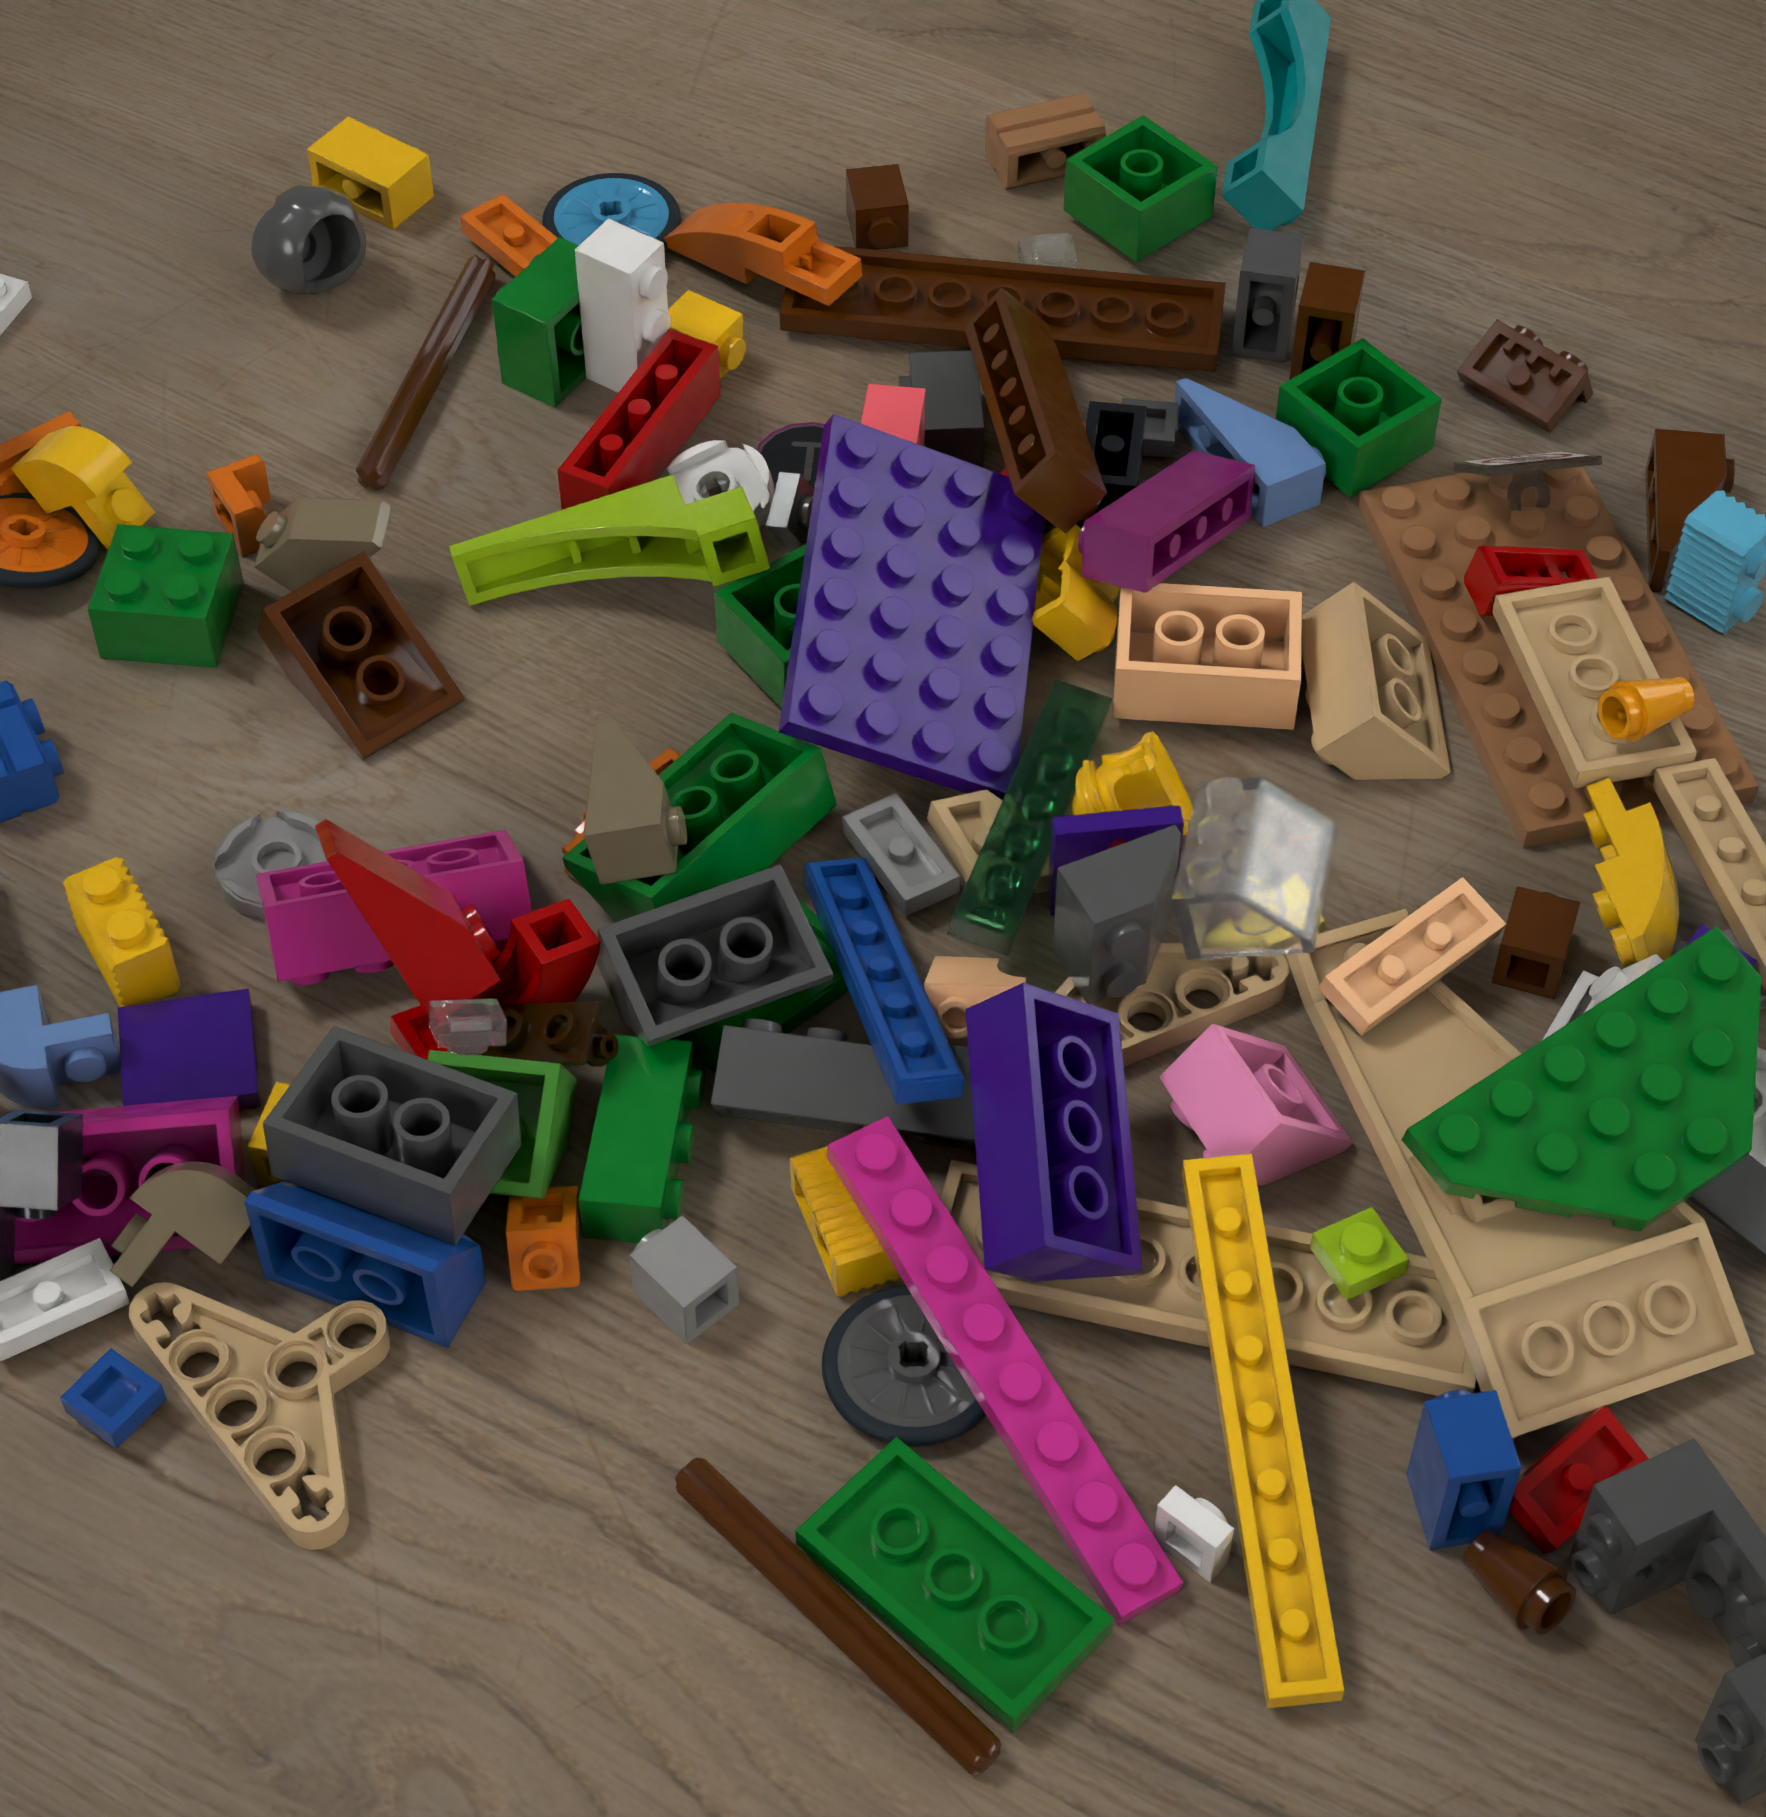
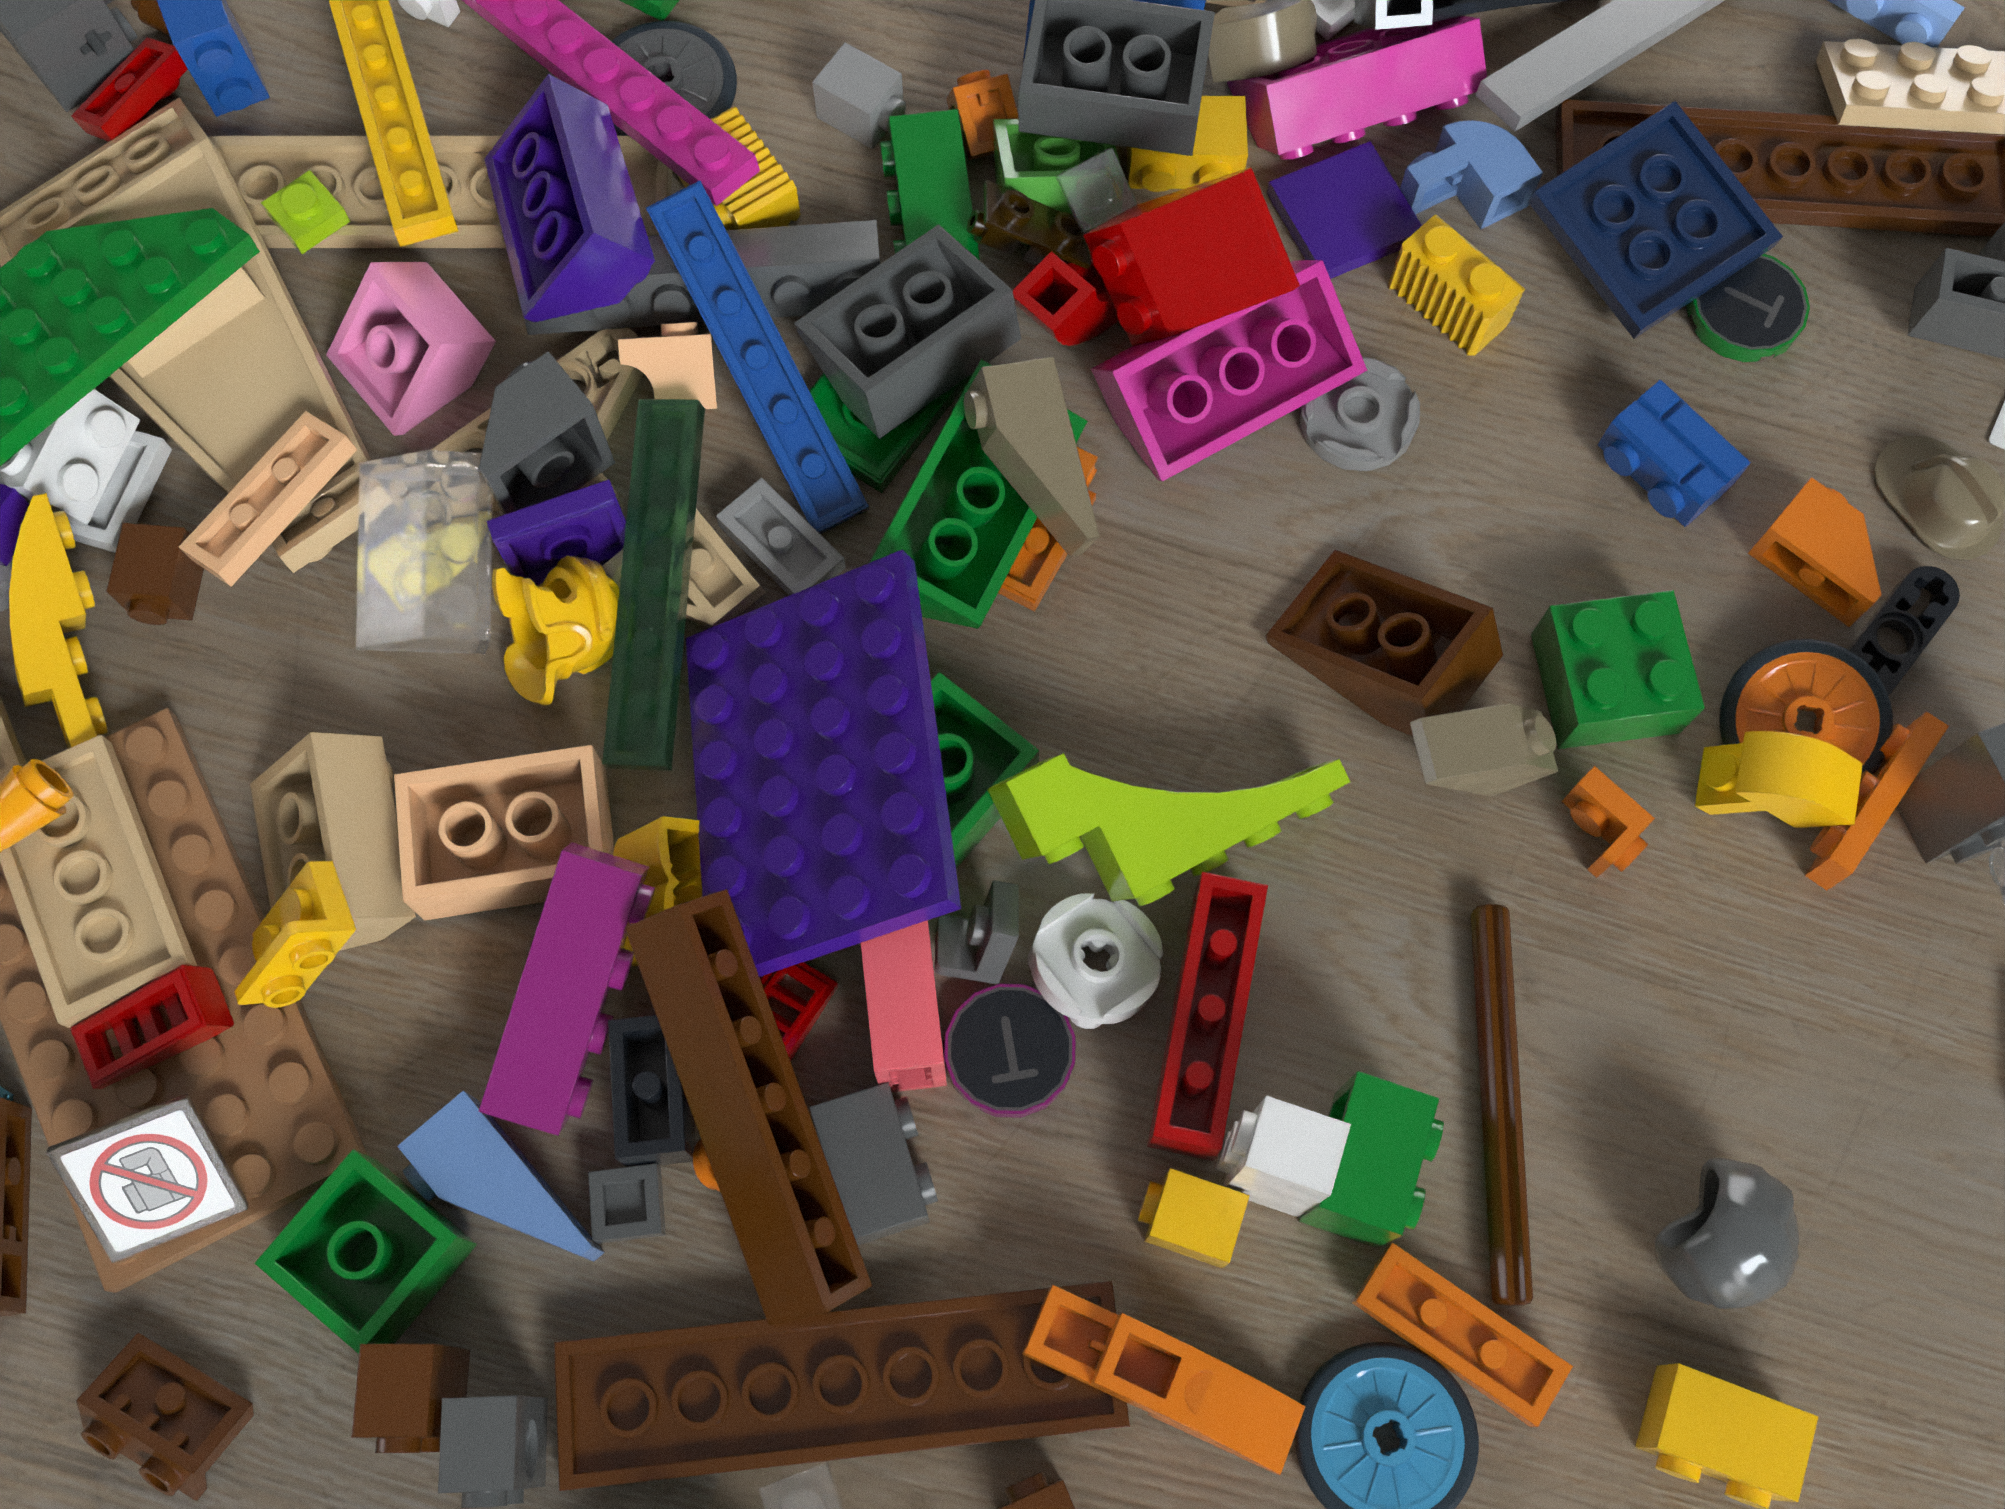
camera: 165 degrees right, 20 degrees up
(1396, 589) = (297, 938): none -> yellow bracket

